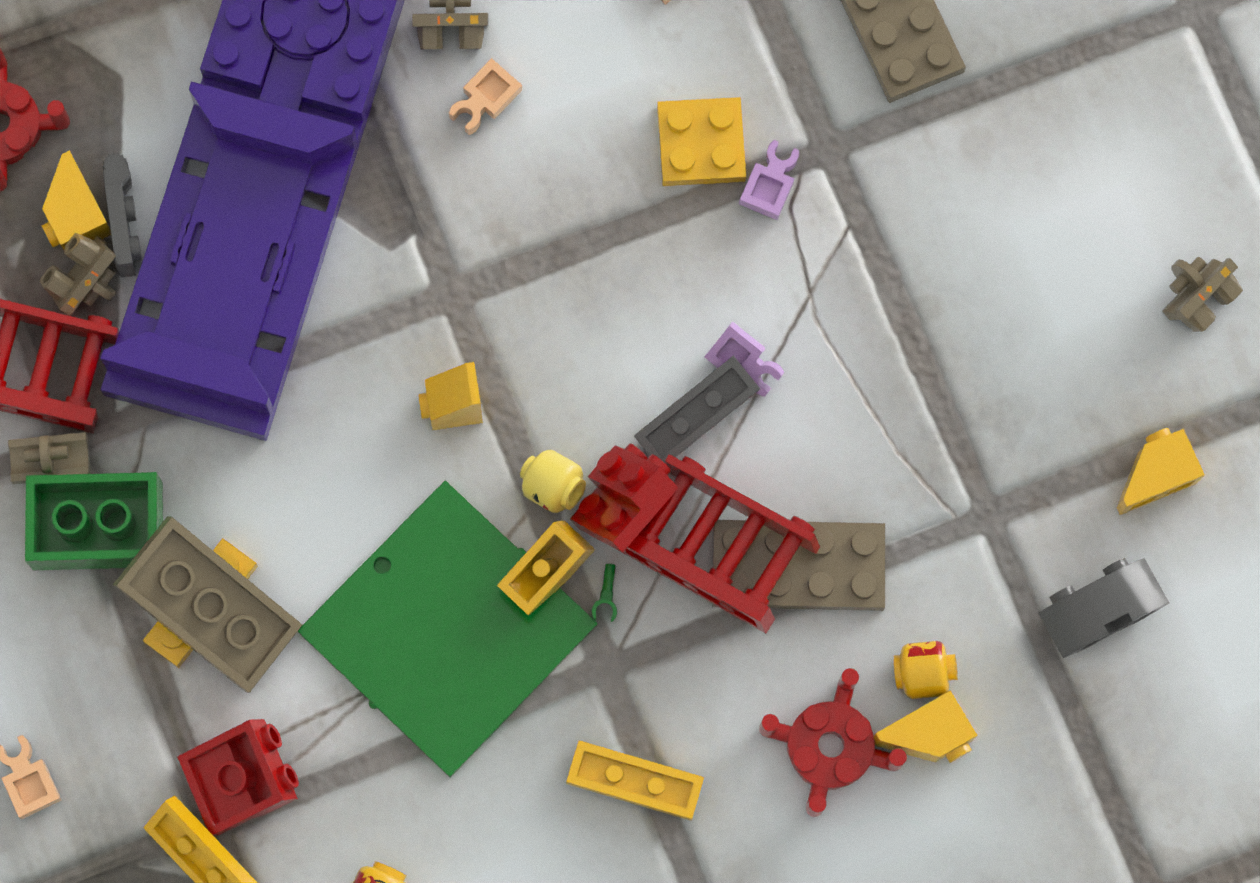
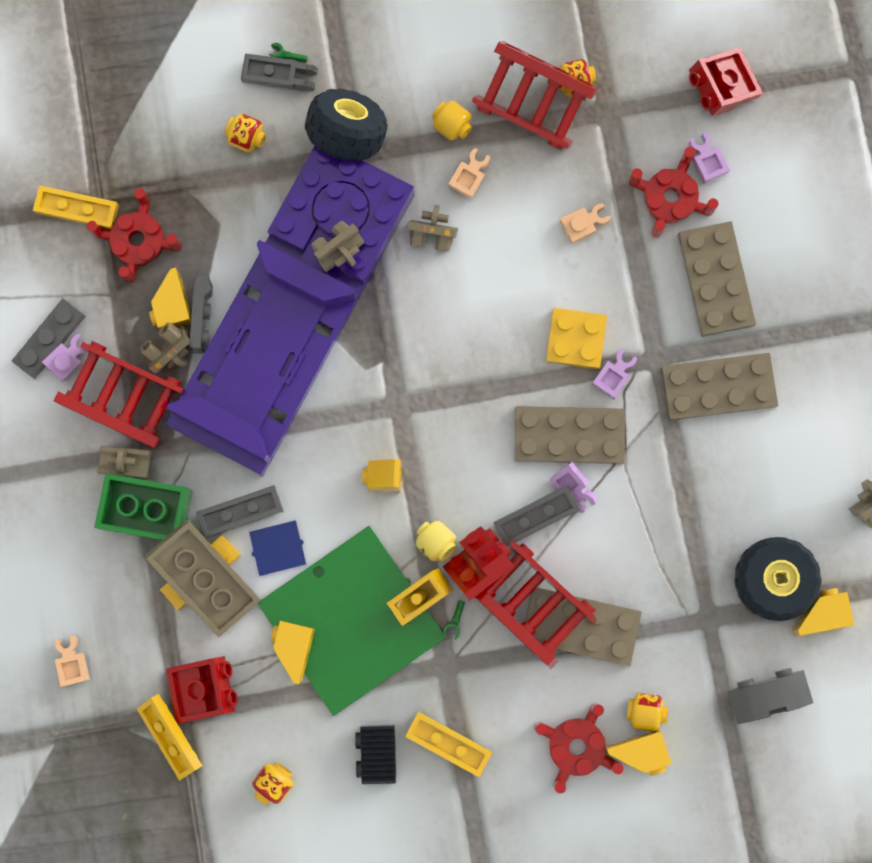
camera: 20 degrees right, 5 degrees up
(244, 497) = (239, 511): none -> dark grey plate
(311, 543) = (277, 548): none -> clear blue piece
(317, 71) = (340, 248): none -> dark tan hips
(366, 681) = (292, 647): none -> yellow slope
(488, 92) = (447, 280): light nougat plate -> none
(529, 816) = (377, 754): none -> black brick
(721, 284) = (570, 435): none -> dark tan plate
(930, 170) = (719, 386): none -> dark tan plate
(1077, 432) = (777, 578): none -> black wheel

